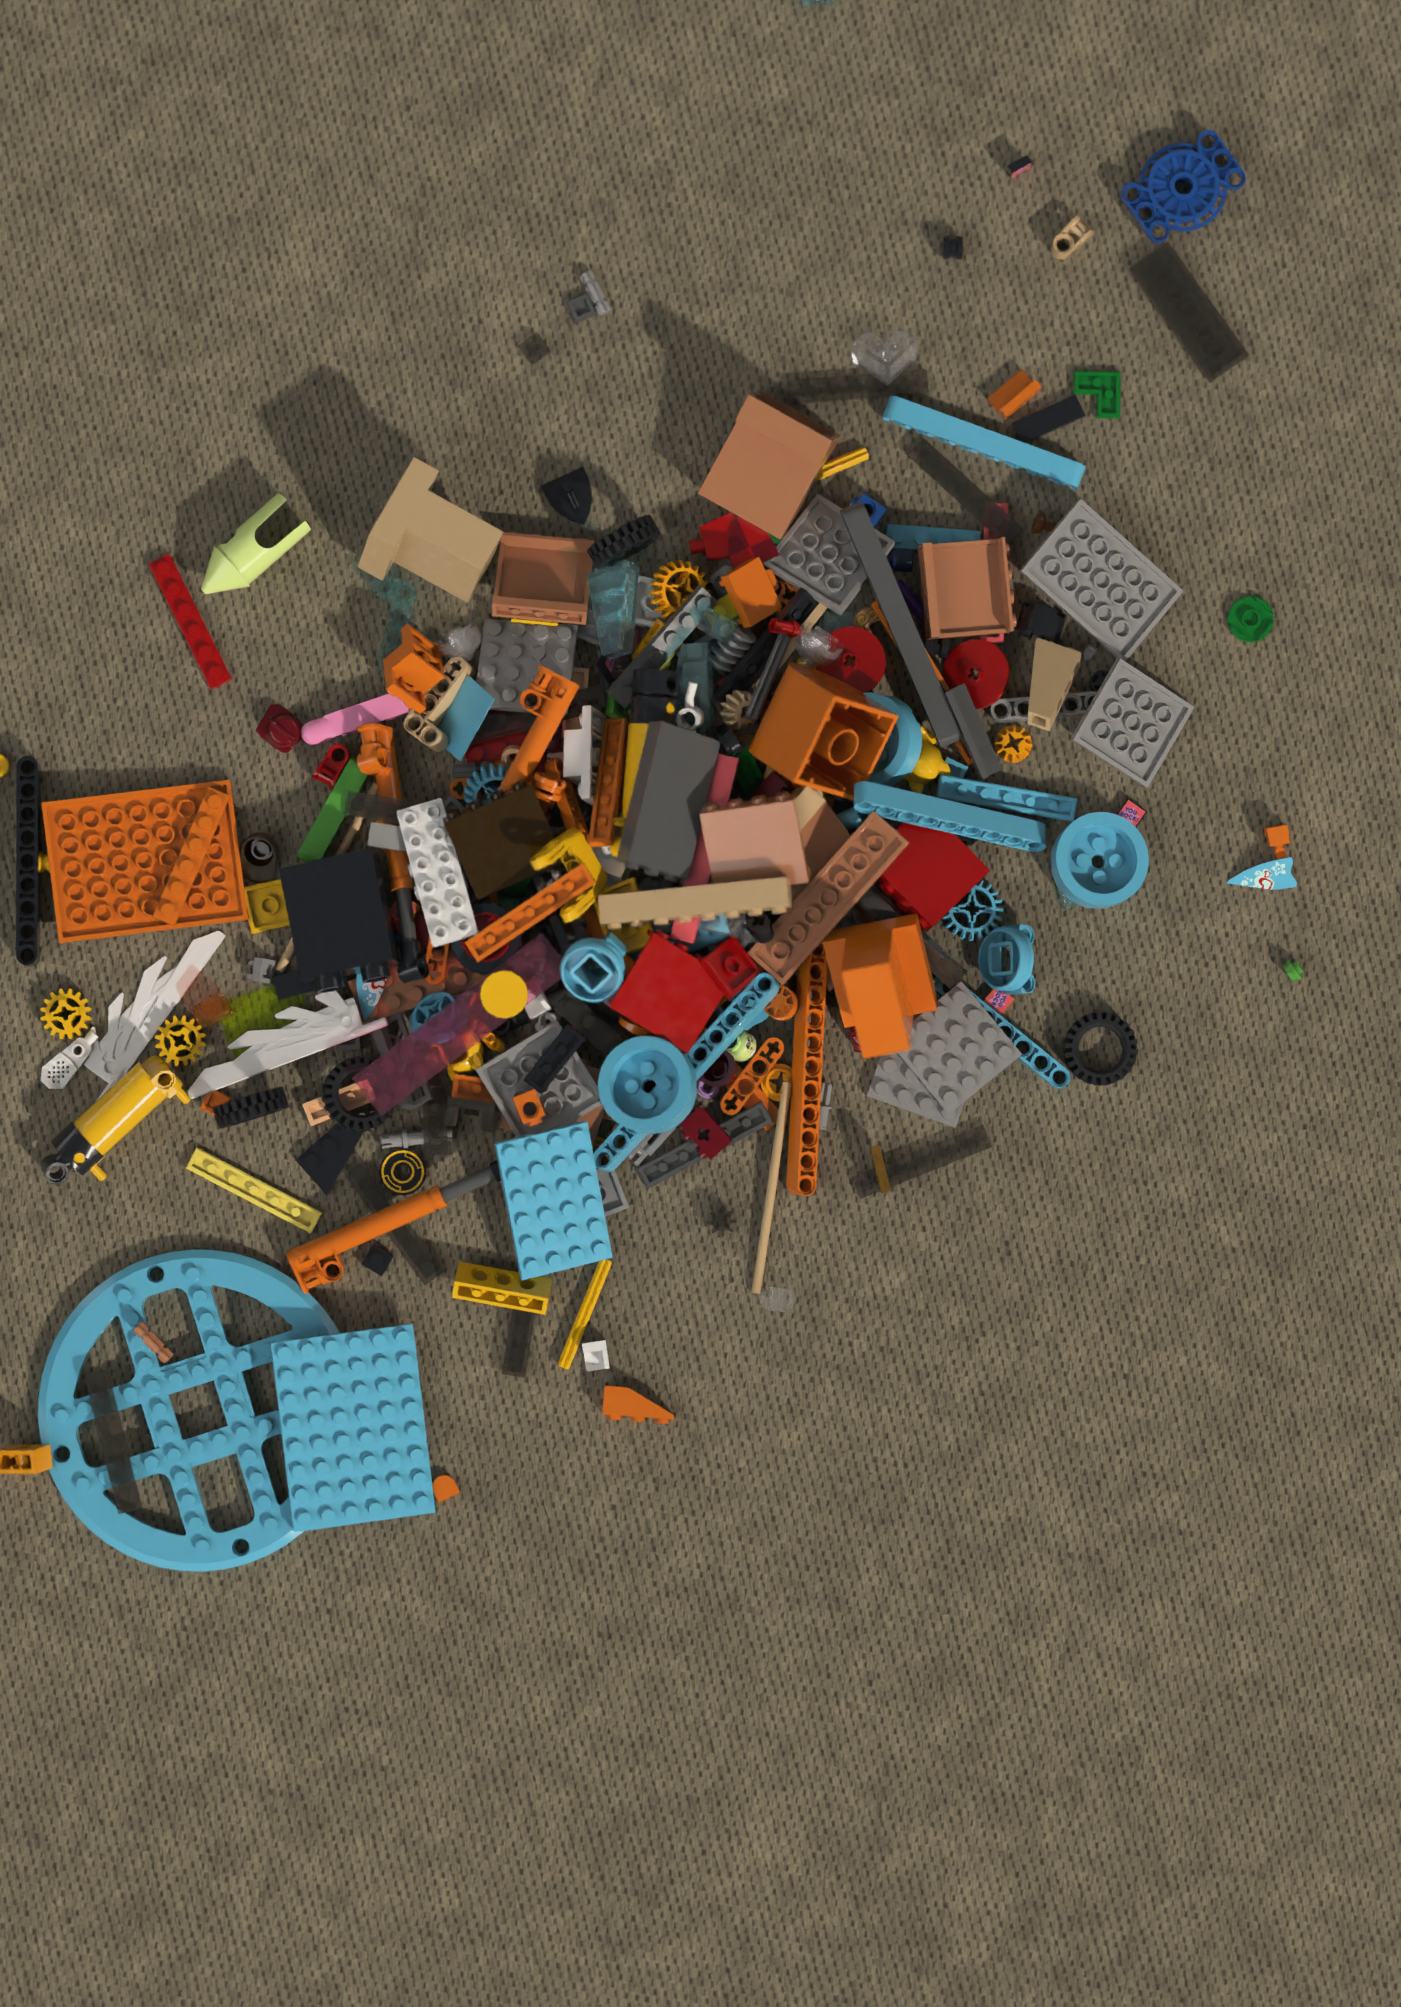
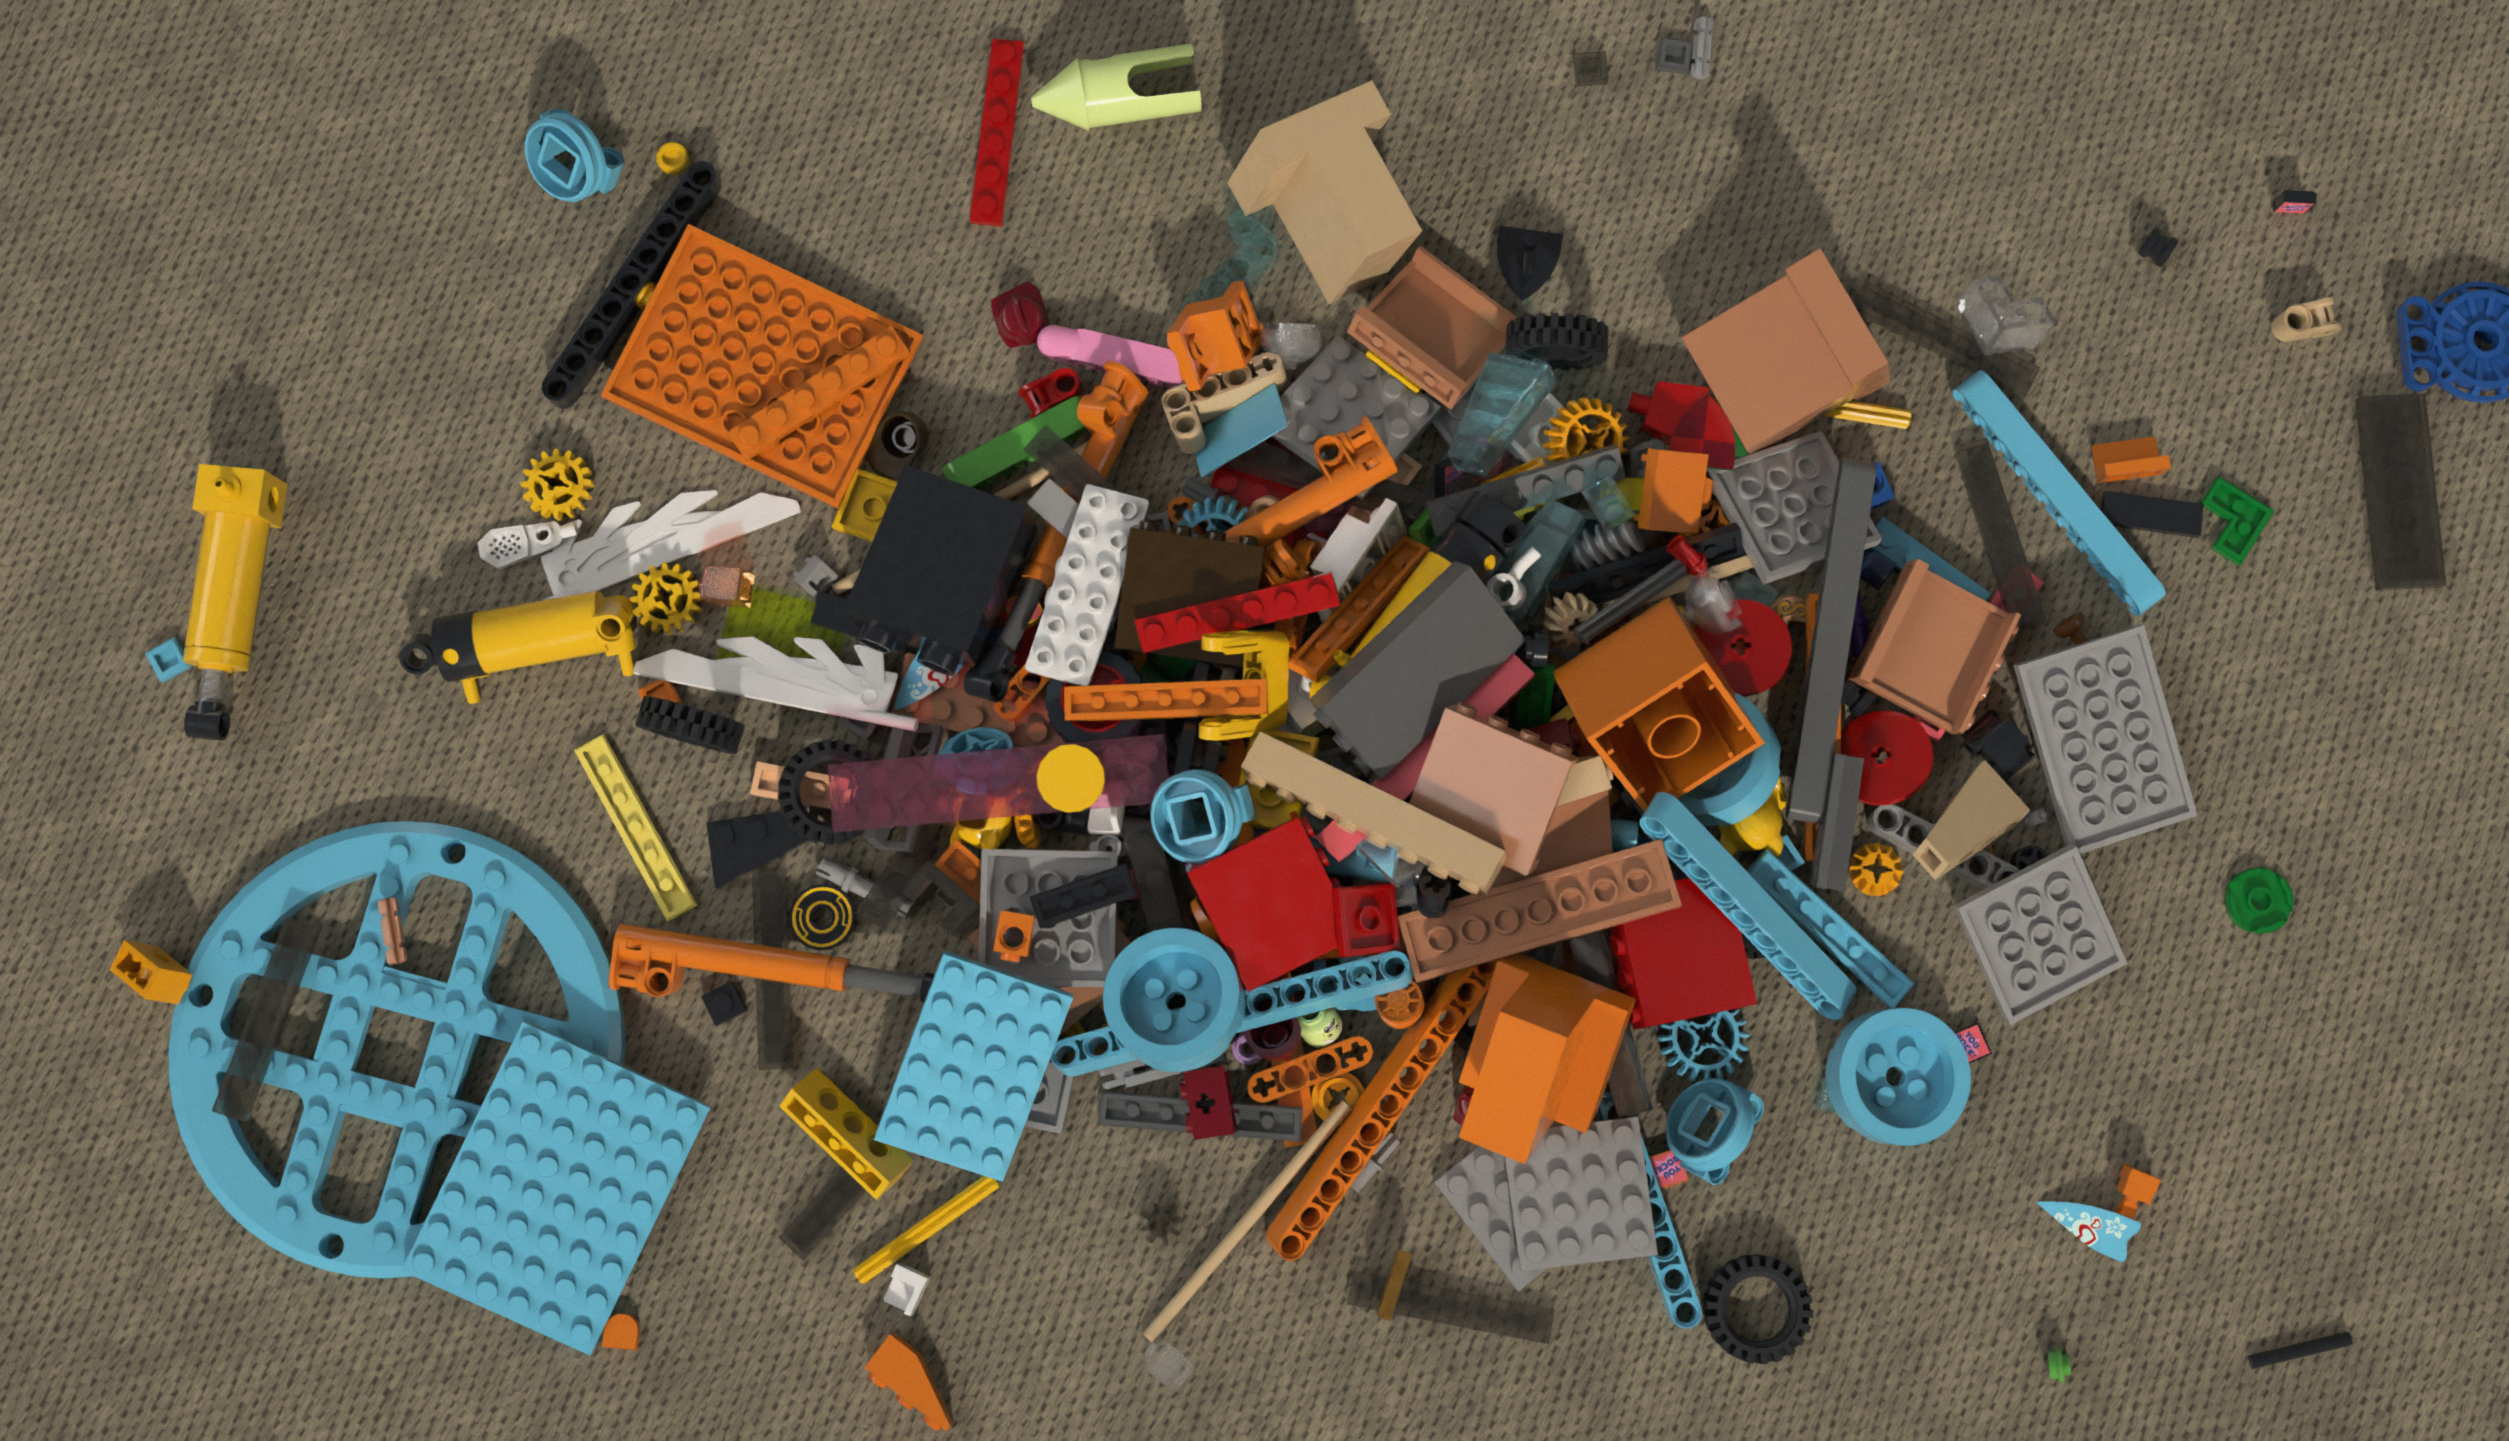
camera: 40 degrees right, 5 degrees down
(539, 833) = (1238, 611): none -> red plate

